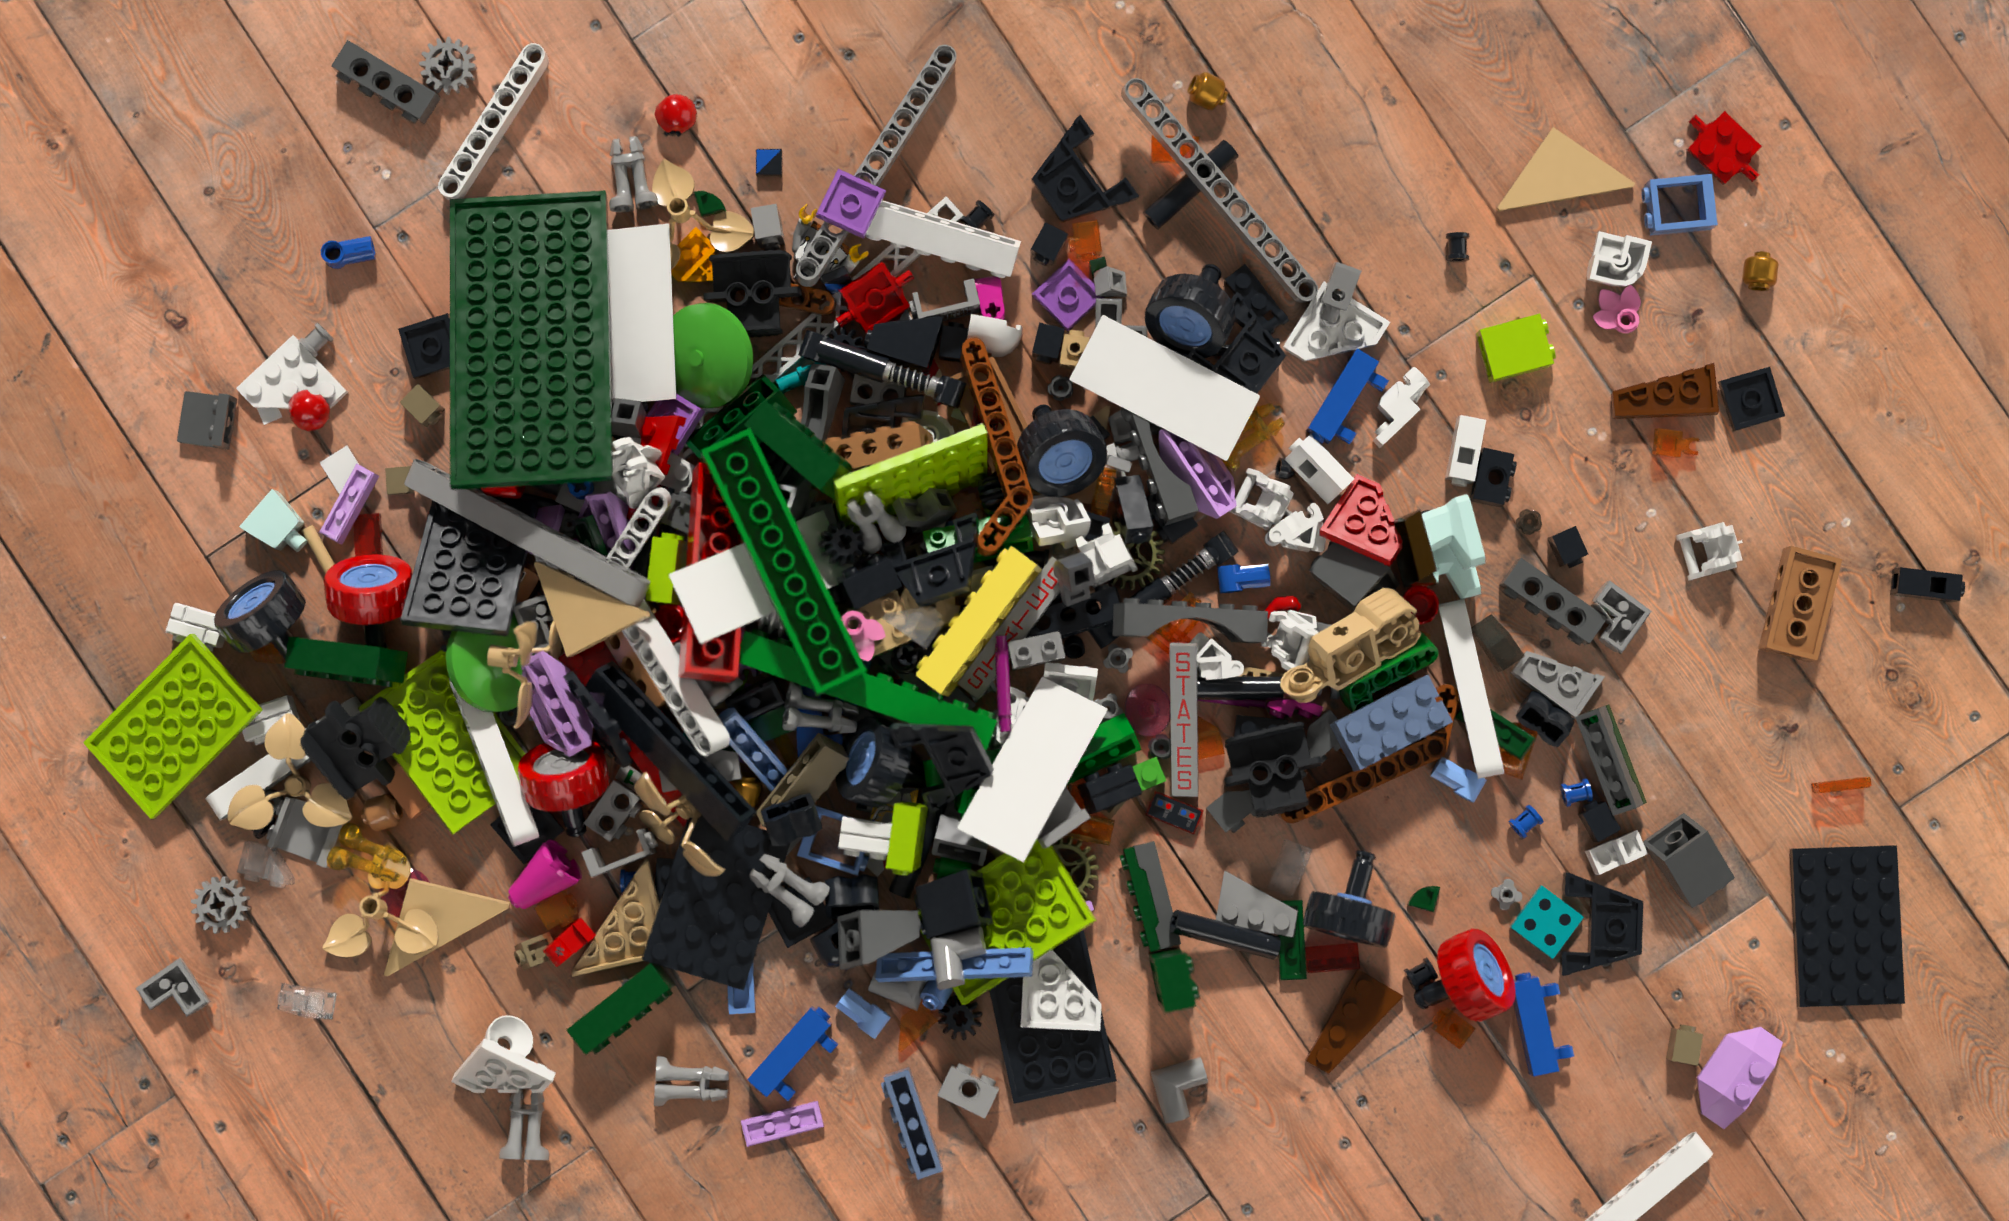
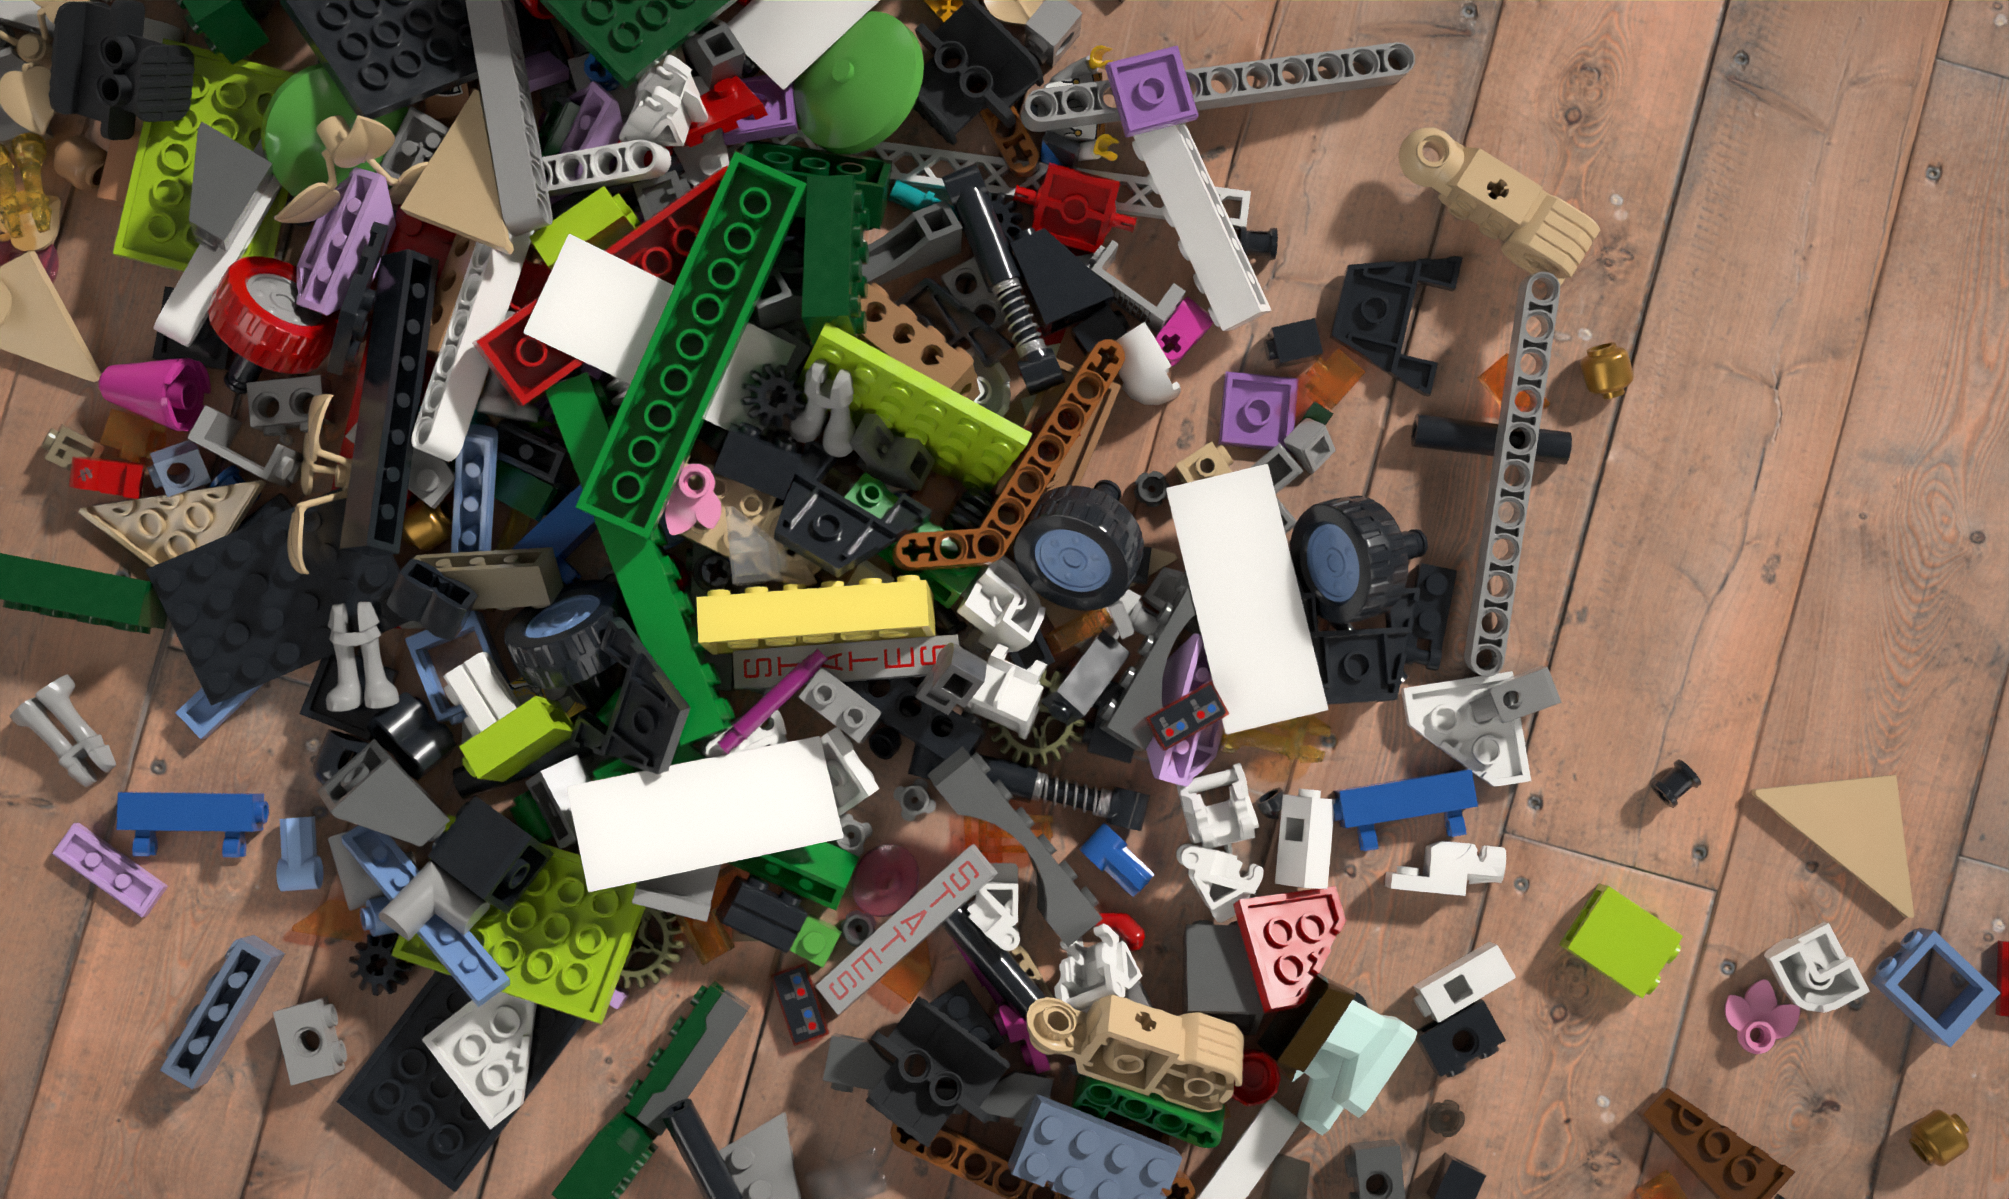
camera: 45 degrees right, 0 degrees up
(475, 740) = (224, 188): none -> dark grey slope
(607, 894) = (192, 477): none -> sand blue brick
(628, 776) = (341, 390): white sticker -> none
(797, 700) = (577, 555): light grey piece -> none
(1047, 343) = (1186, 433): black brick -> none
(1102, 62) = (1538, 227): none -> tan brick
(1199, 472) = (1186, 715): none -> tile

